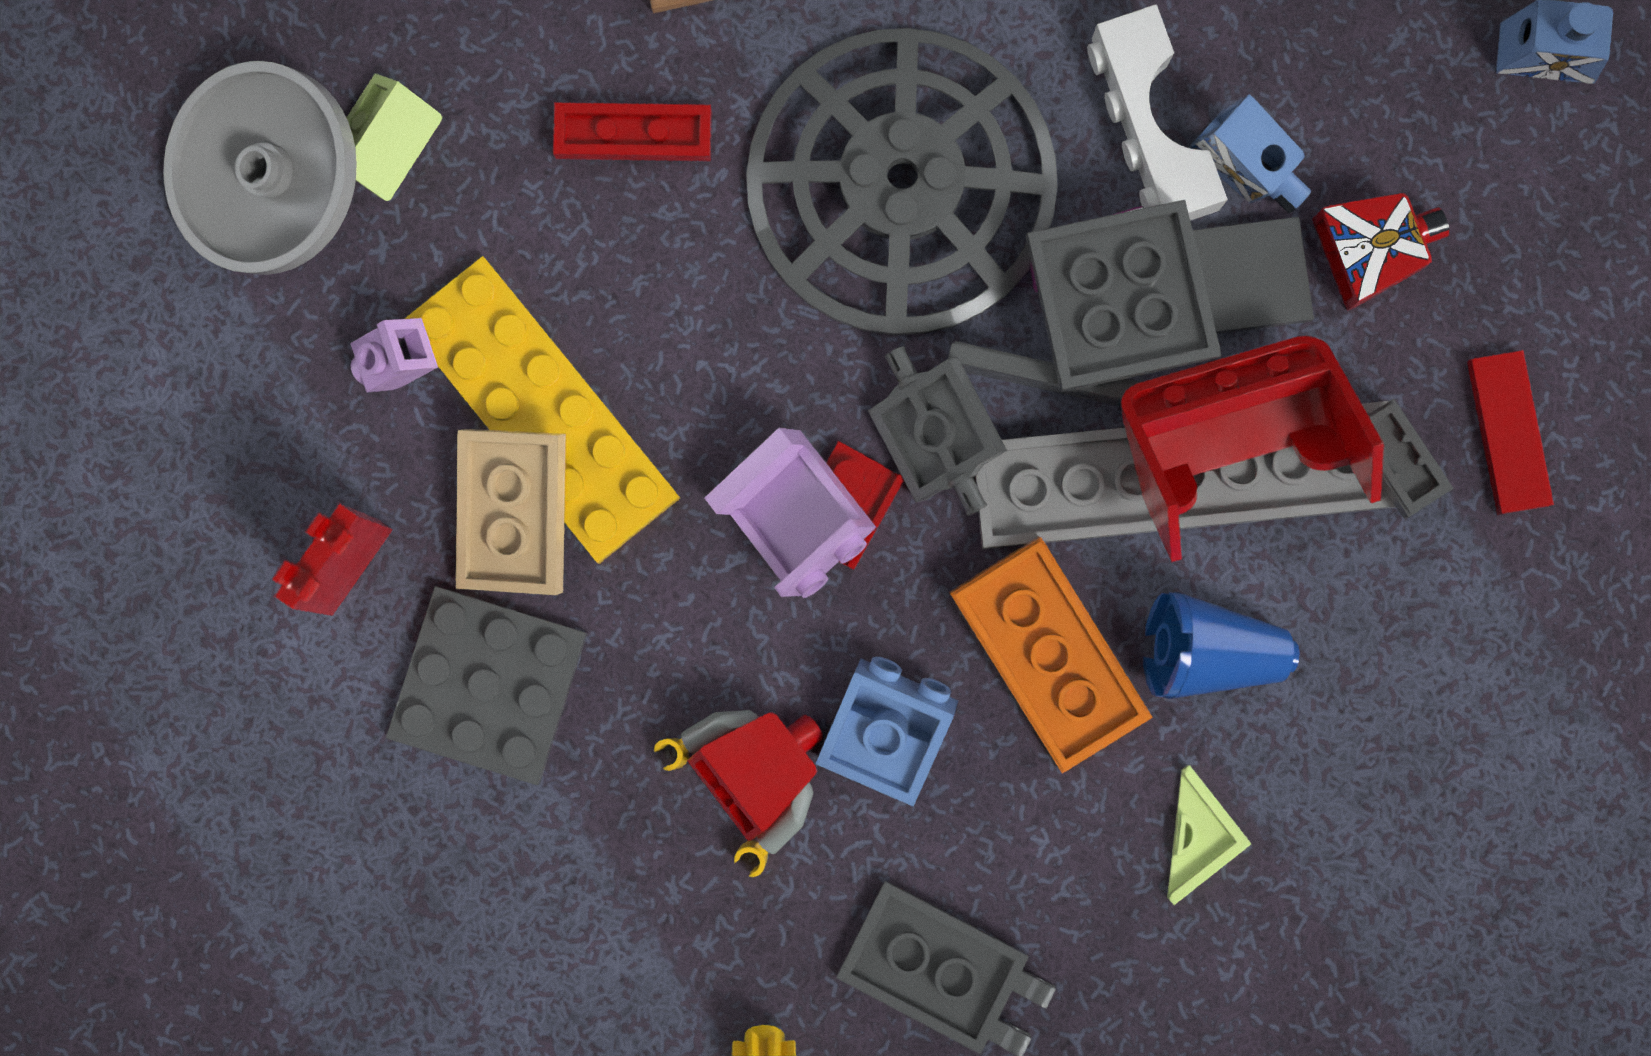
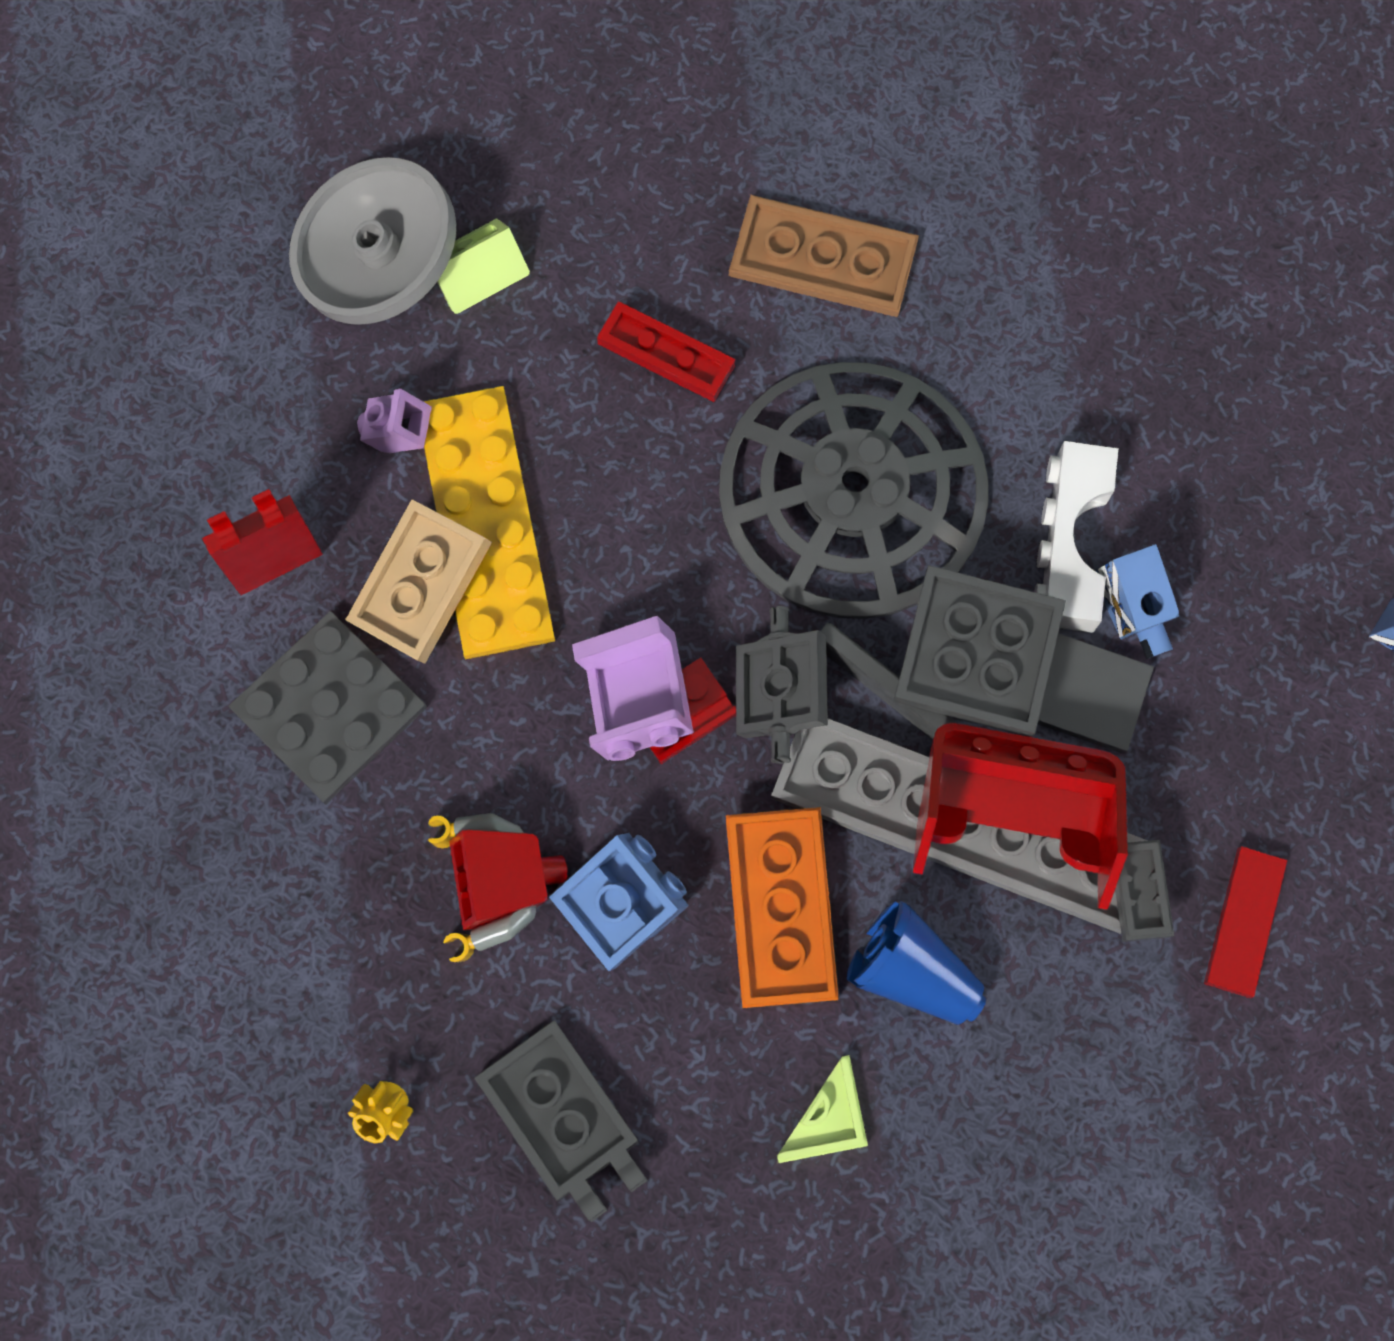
camera: 20 degrees right, 10 degrees down
(1376, 243) = (1206, 717): torso -> none

